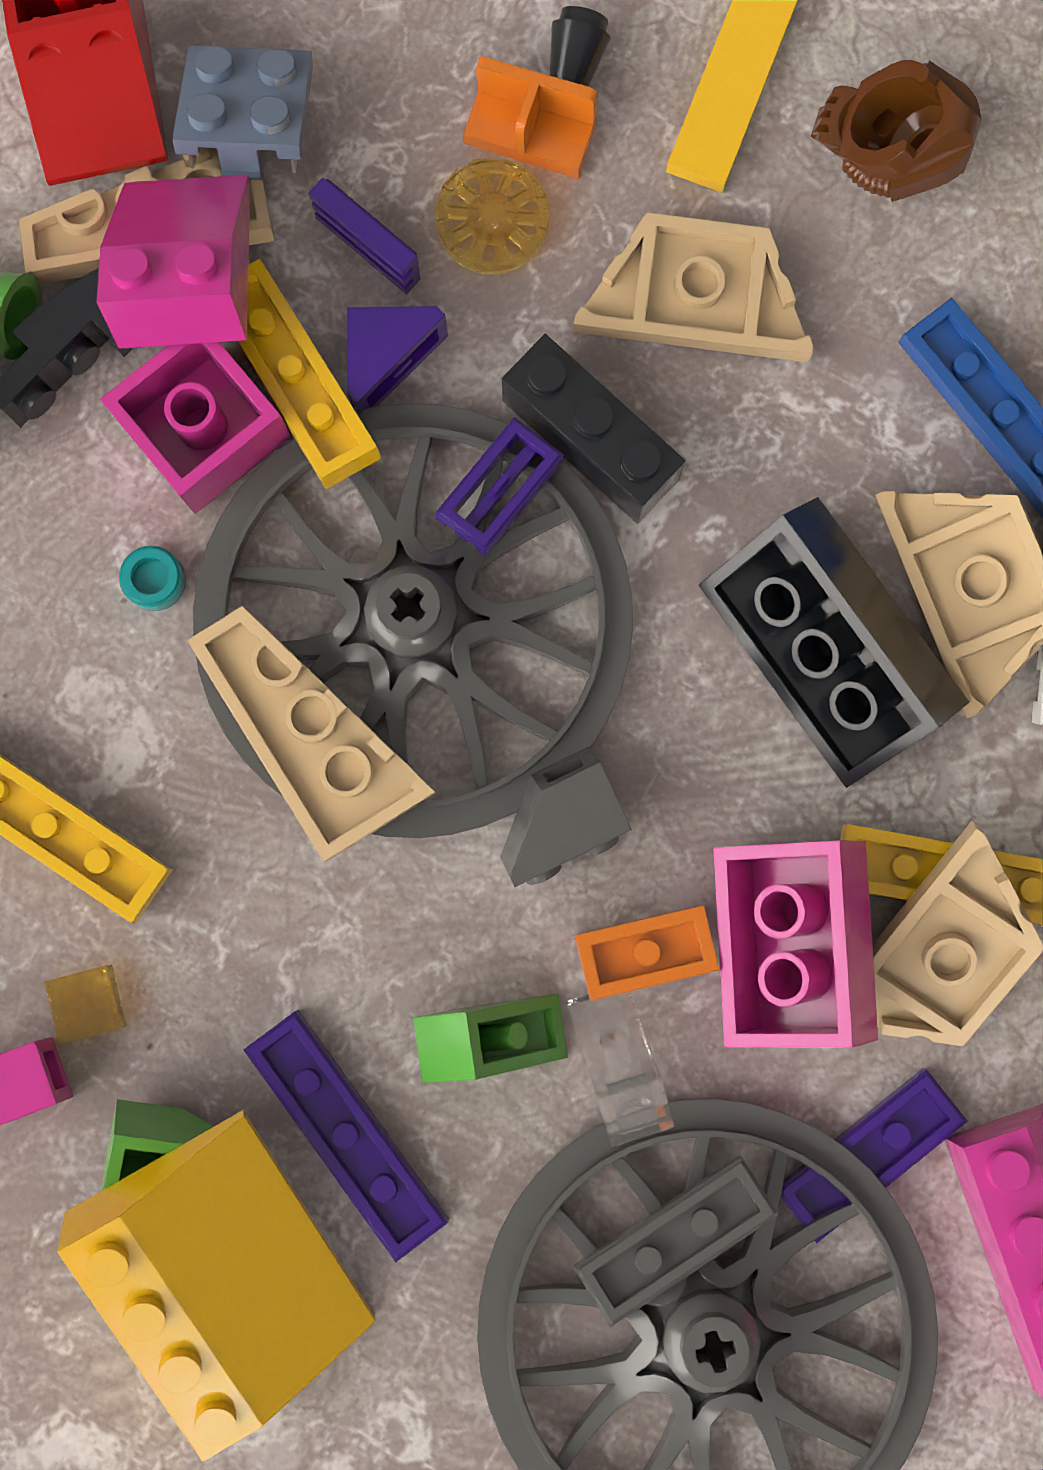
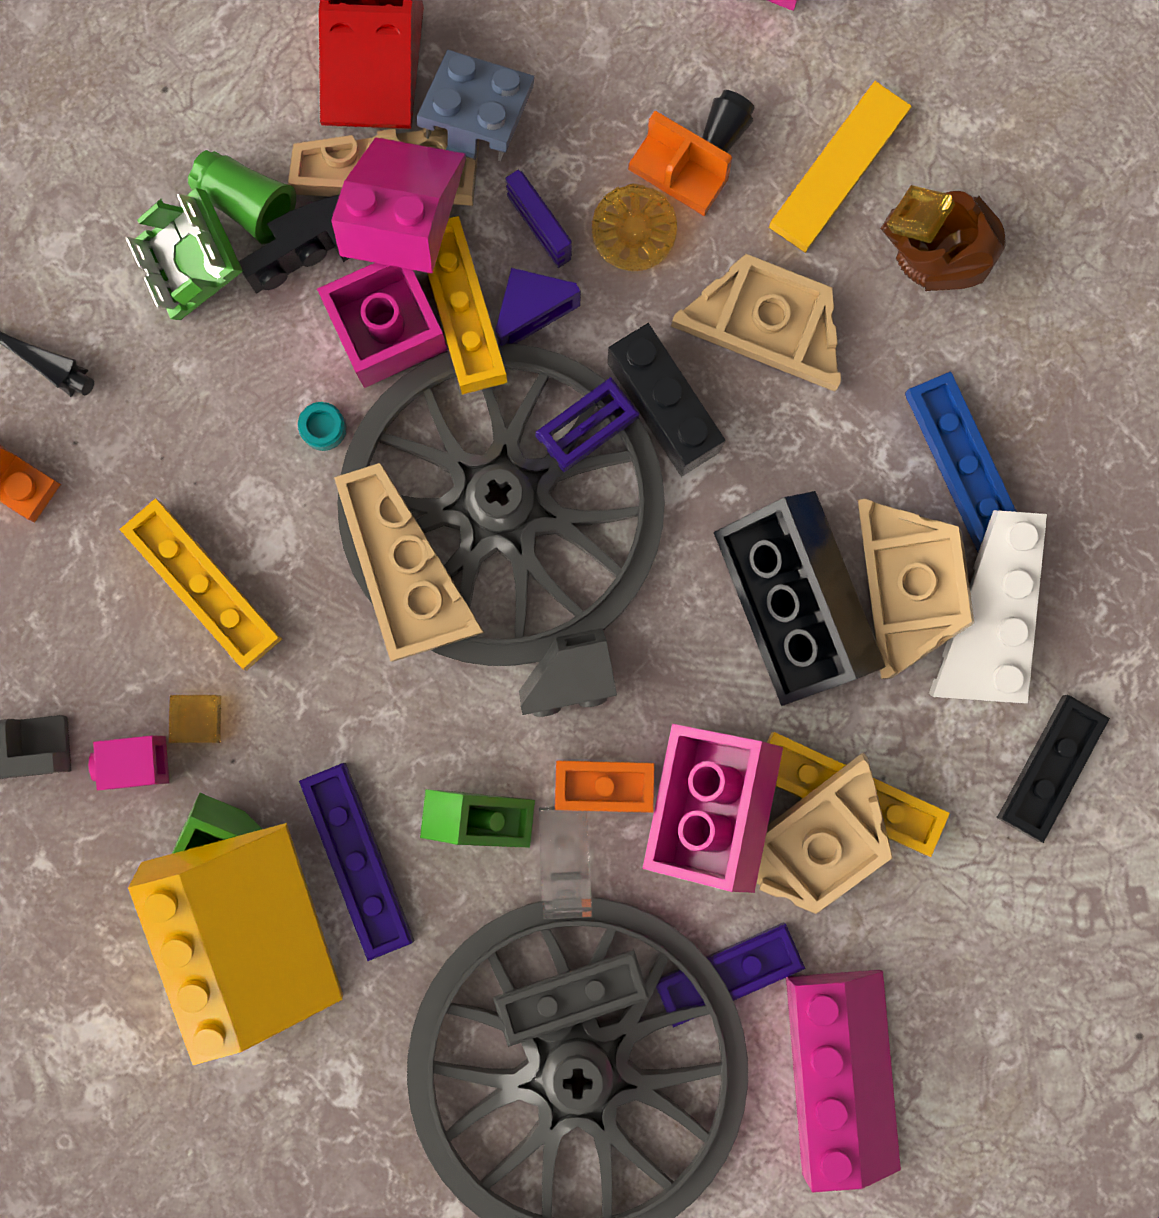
camera: 10 degrees right, 0 degrees up
(861, 102) = (920, 213): none -> clear yellow tile

